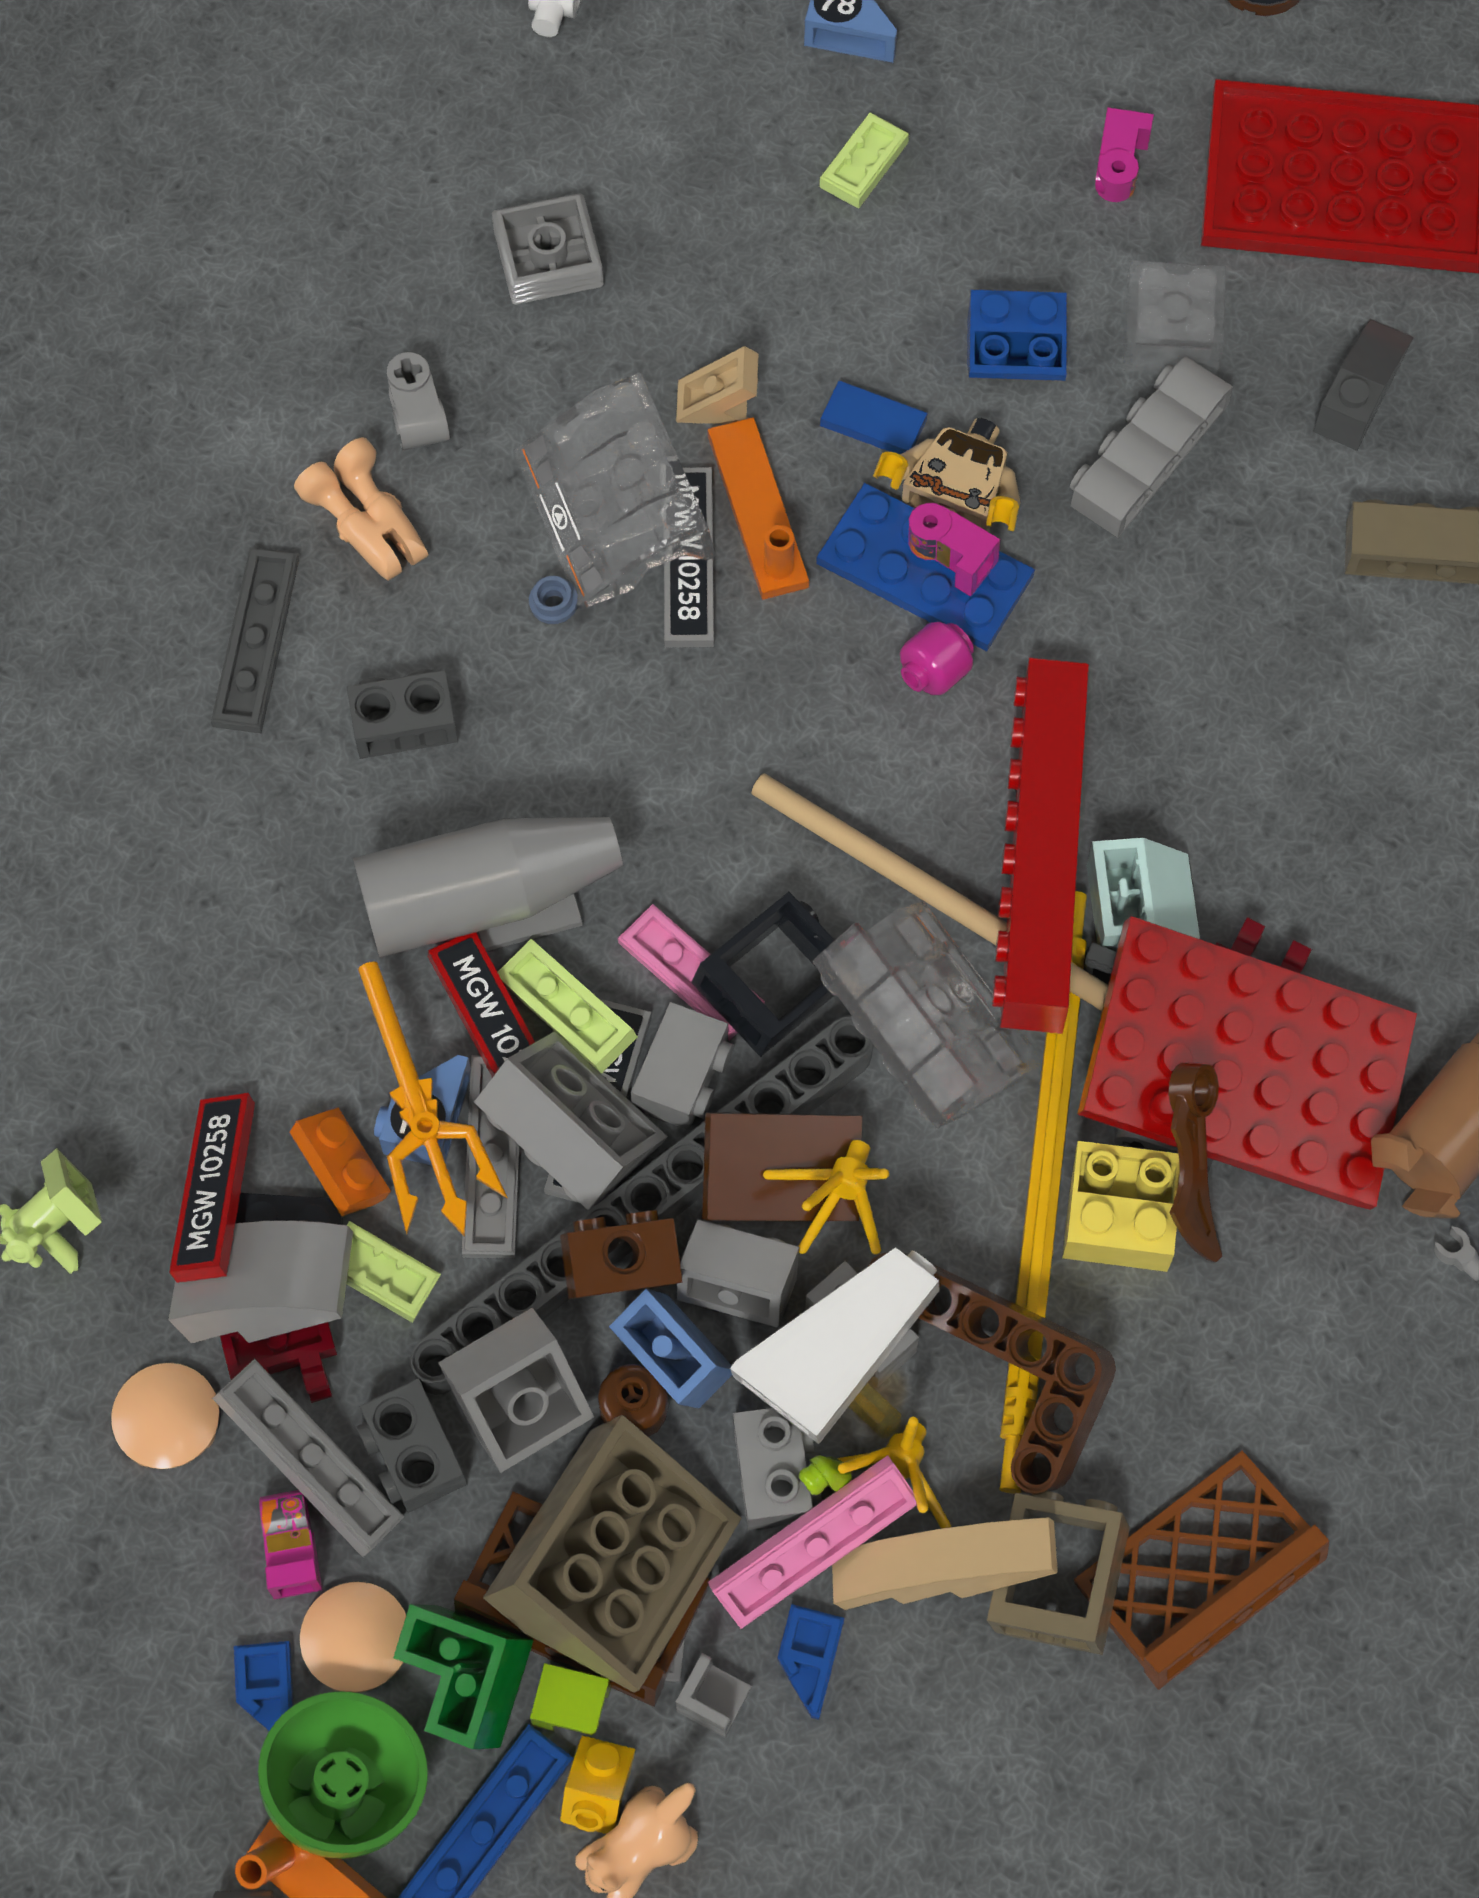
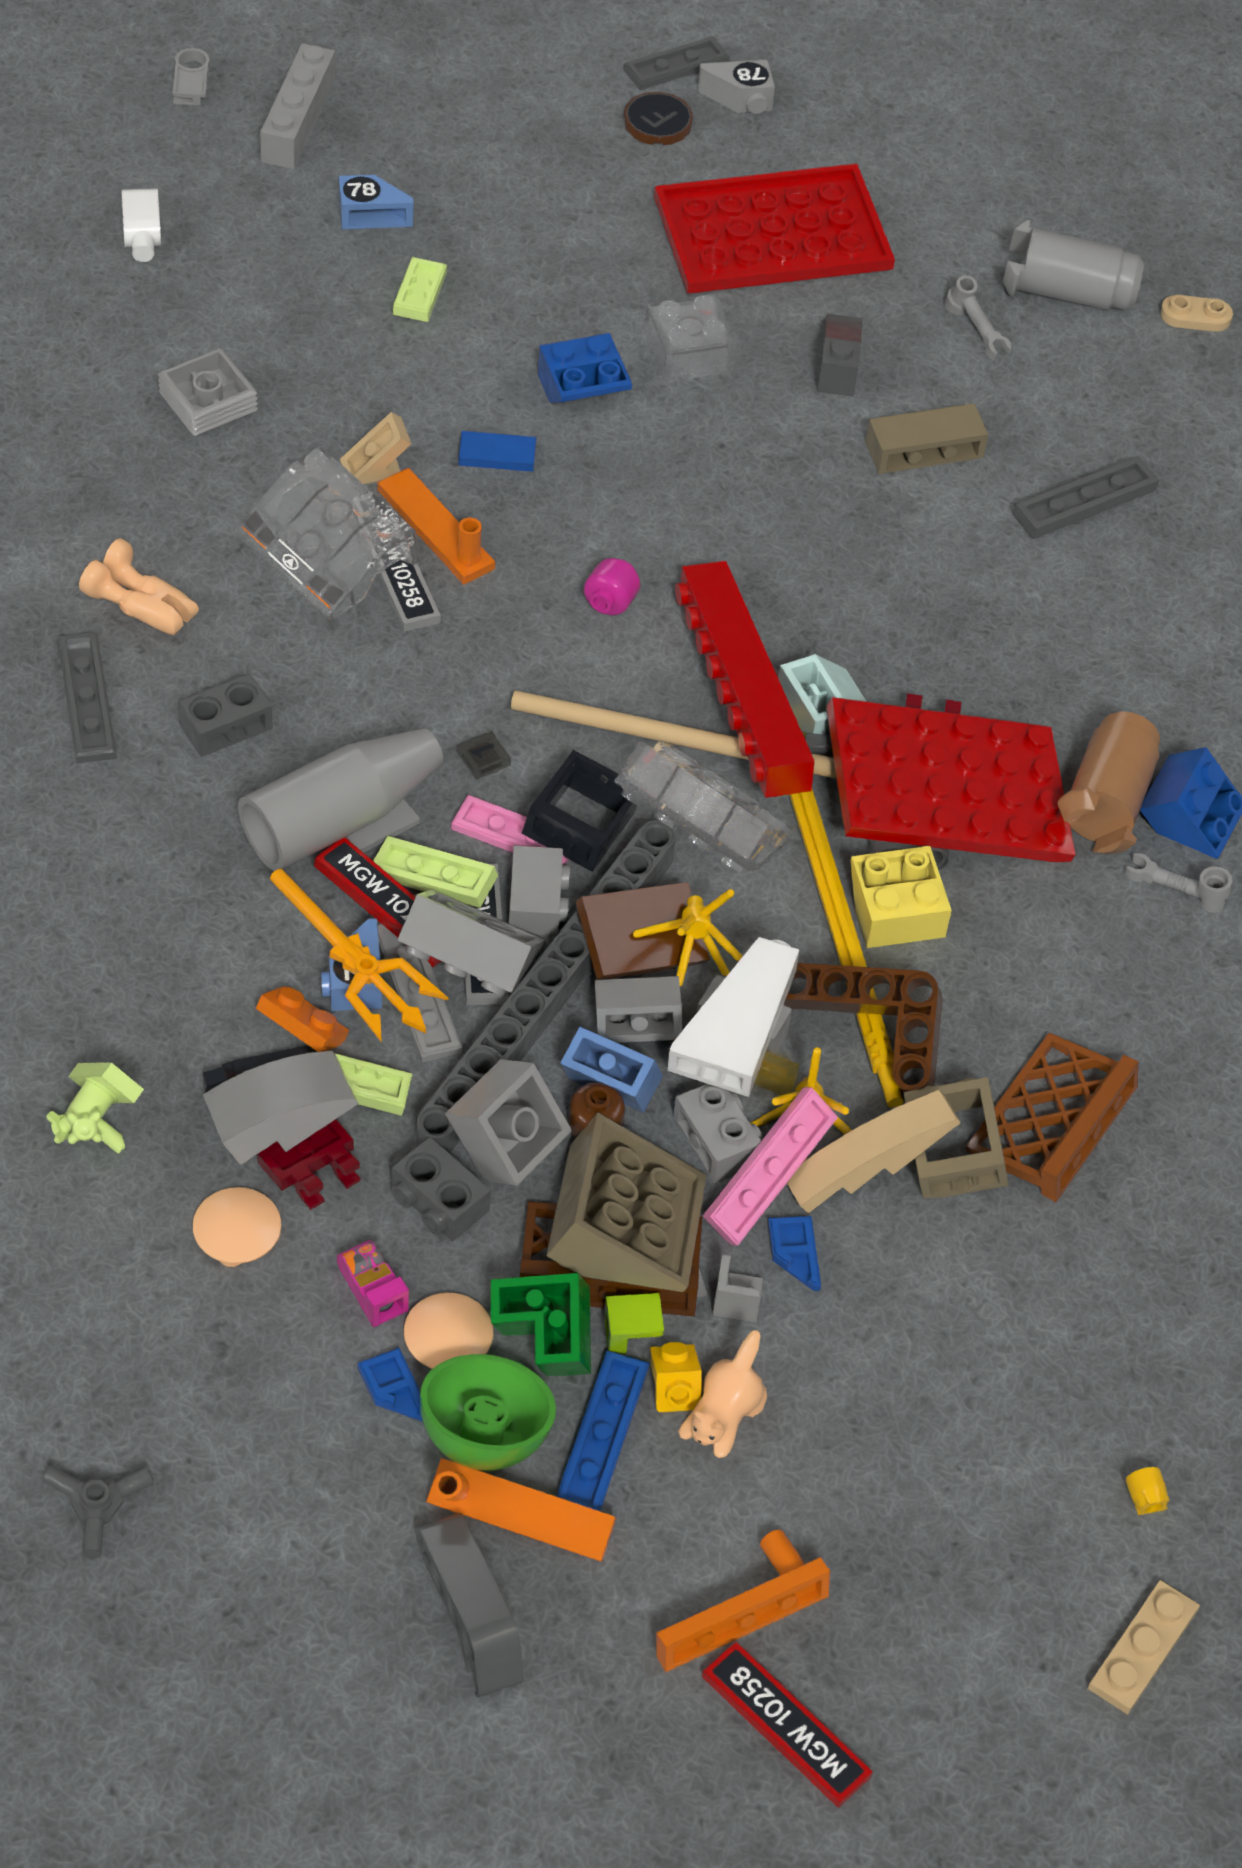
camera: 25 degrees left, 15 degrees down
(212, 1188) = (215, 1054): tile -> none
(308, 1458) = (366, 1213): light grey tile -> none
(415, 406) = (149, 511): light grey piece -> none
(549, 587) = (307, 608): sand blue plate -> none
(653, 1260) = (535, 1026): reddish brown brick -> none
(694, 851) = (483, 755): none -> clear smoke tile
(823, 1473) = (761, 1115): lime arm -> none
(875, 554) = (573, 533): blue plate -> none
(953, 542) = (595, 507): dark pink leg -> none
(958, 473) = (579, 471): torso -> none
(1117, 164) = (604, 245): dark pink leg -> none
(1150, 446) = (706, 422): light grey brick -> none
(1193, 1098) = (927, 799): reddish brown piece -> none

